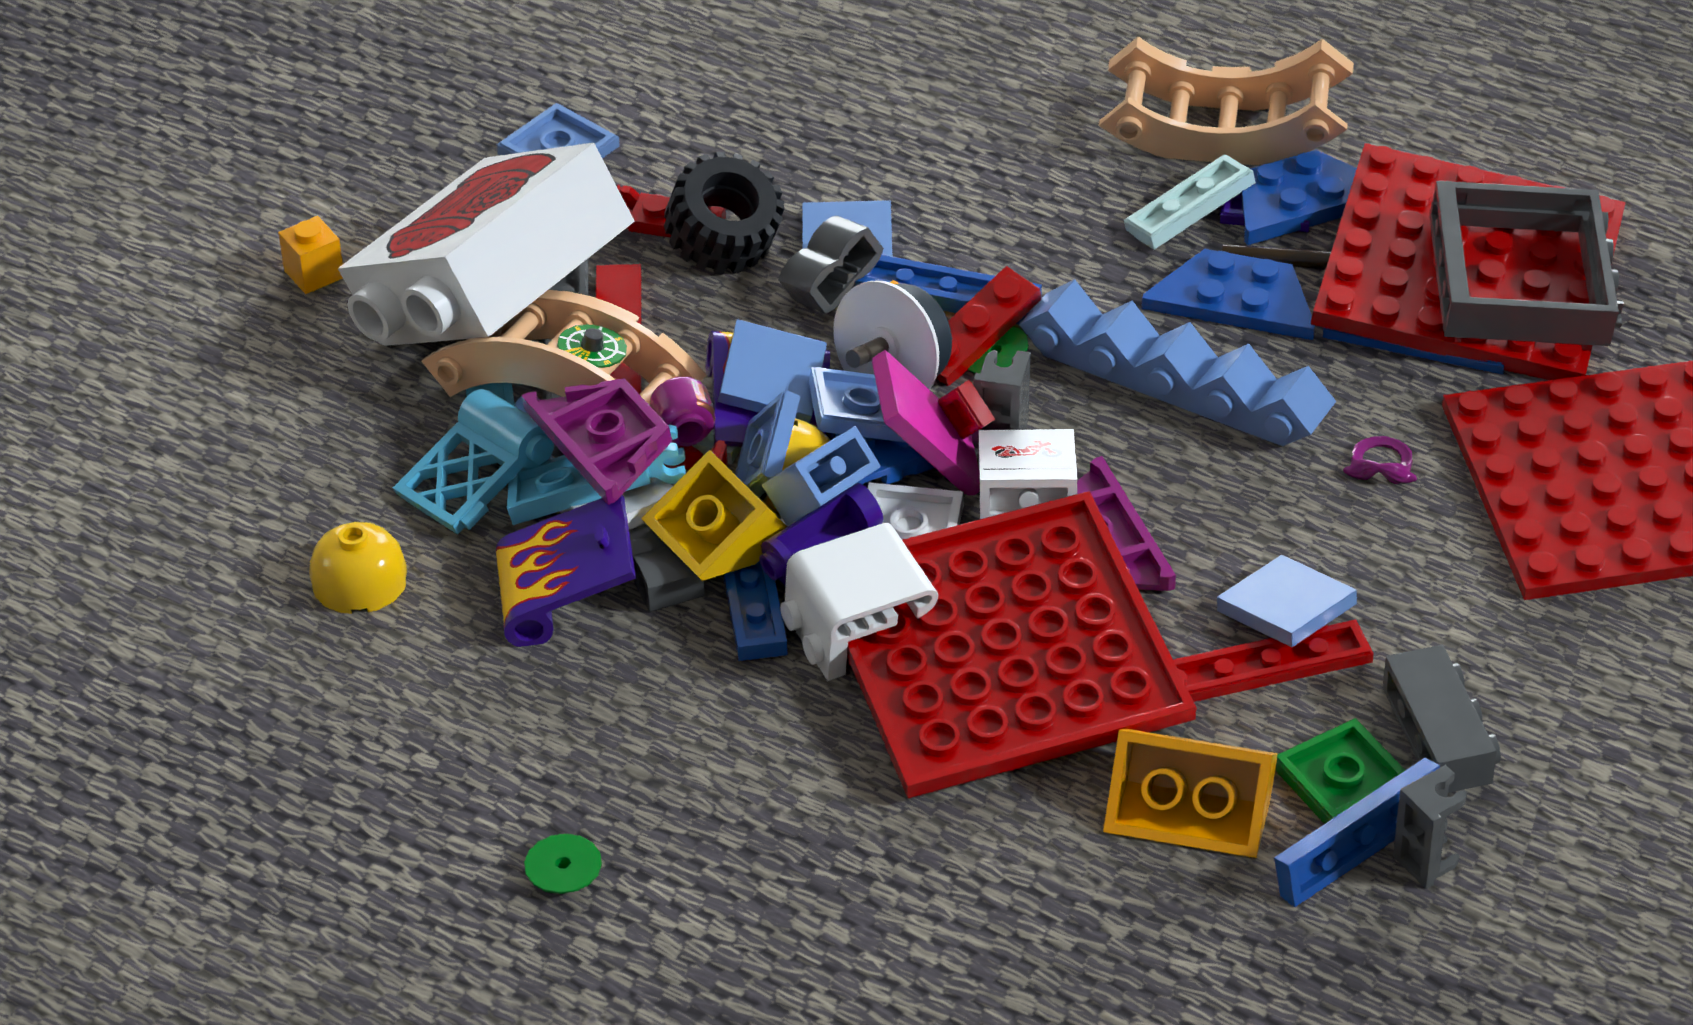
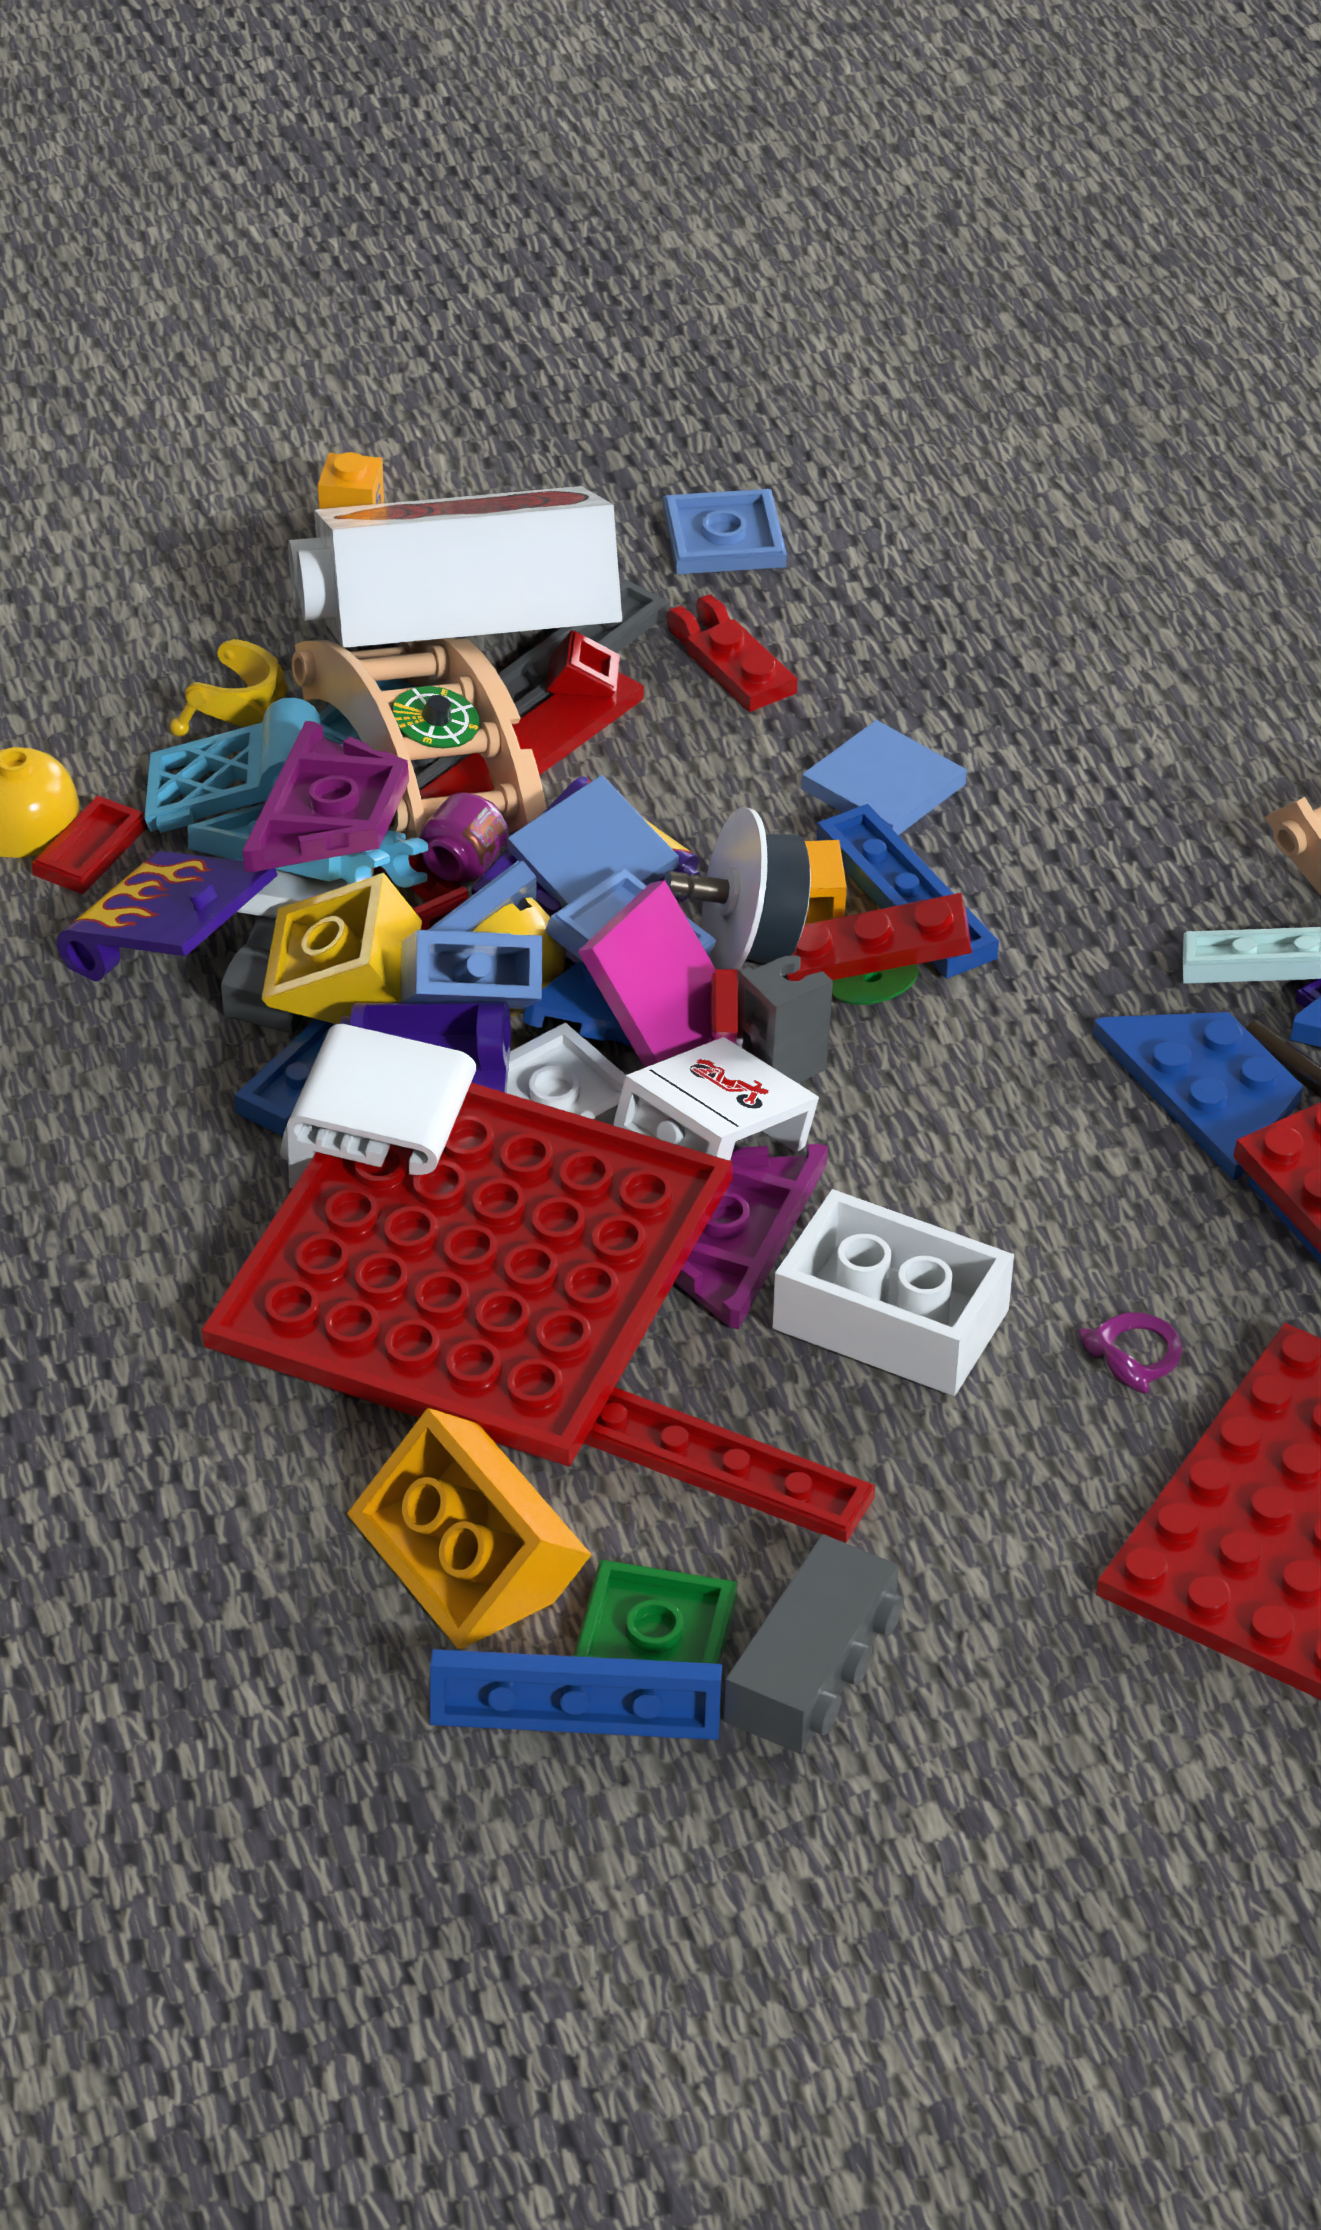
camera: 40 degrees right, 0 degrees up
(407, 401) = (236, 705): none -> yellow helmet
(430, 566) = (89, 844): none -> red tile
(599, 276) = (582, 668): none -> red slope
(729, 185) = (760, 637): black tyre -> none
(830, 264) = (816, 787): dark grey brick -> none
(1177, 366) = (1026, 1109): medium blue brick -> none
(1246, 508) = (892, 1292): none -> white brick
(1286, 600) = (824, 1416): tile -> none
(1423, 823) = (629, 1733): dark grey hinge -> none

